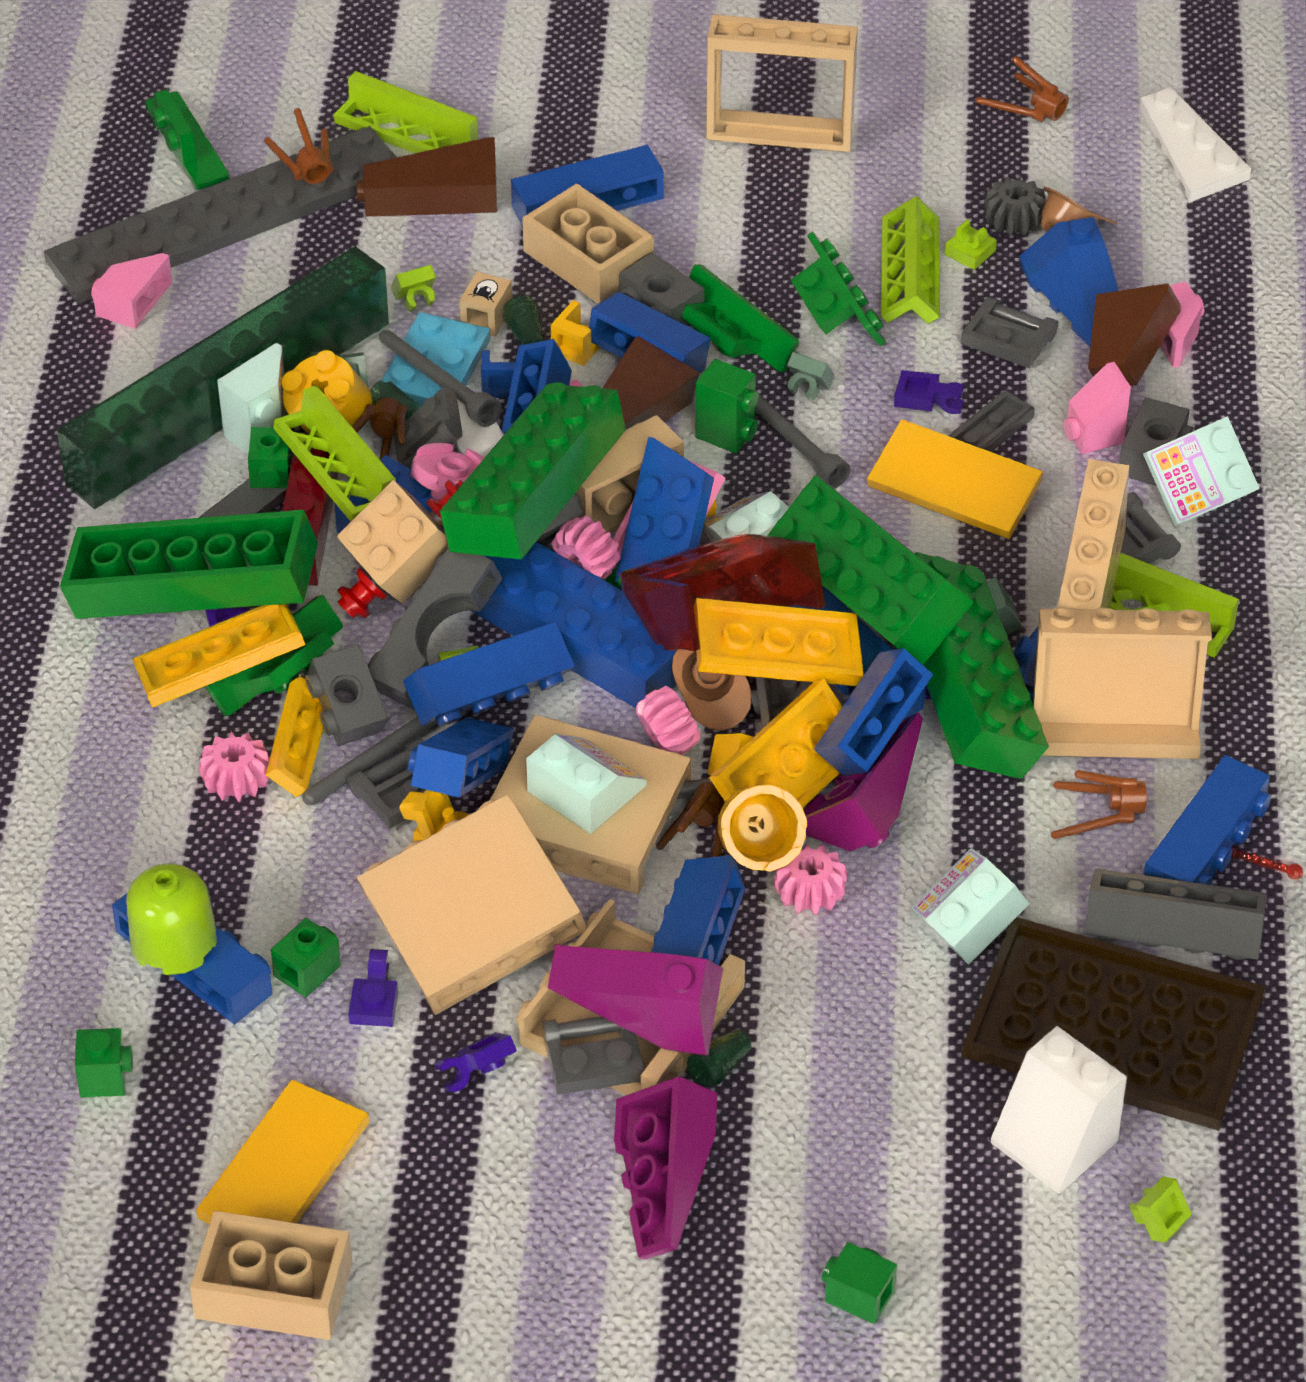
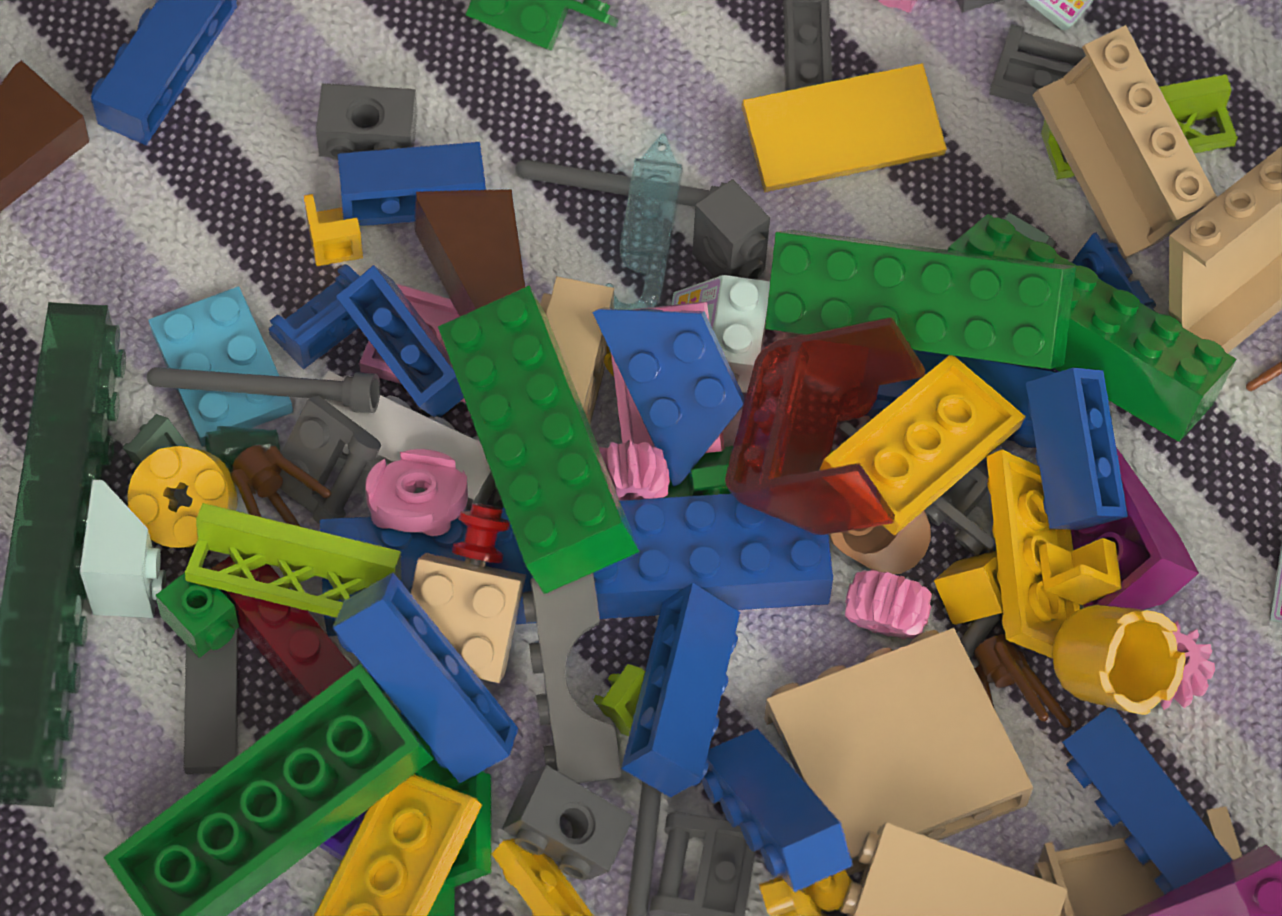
camera: 45 degrees left, 15 degrees up
(336, 547) = (425, 678): none -> blue brick
(412, 283) = (112, 287): lime tile -> none
(485, 301) = (207, 259): tan brick -> none
(523, 319) = (267, 254): clear green cone -> none
(580, 780) = (902, 738): light aqua slope -> none
(585, 241) = (242, 117): tan brick -> none
(726, 406) = (577, 208): green brick -> none
(737, 323) = (472, 103): green bracket -> none
(771, 443) = (650, 220): none -> clear light blue plate
(801, 462) = (731, 233): none -> dark grey brick
(804, 784) = (1080, 573): none -> yellow panel
(809, 371) = (598, 108): sand green tile -> none
(923, 390) = (718, 53): dark purple plate -> none

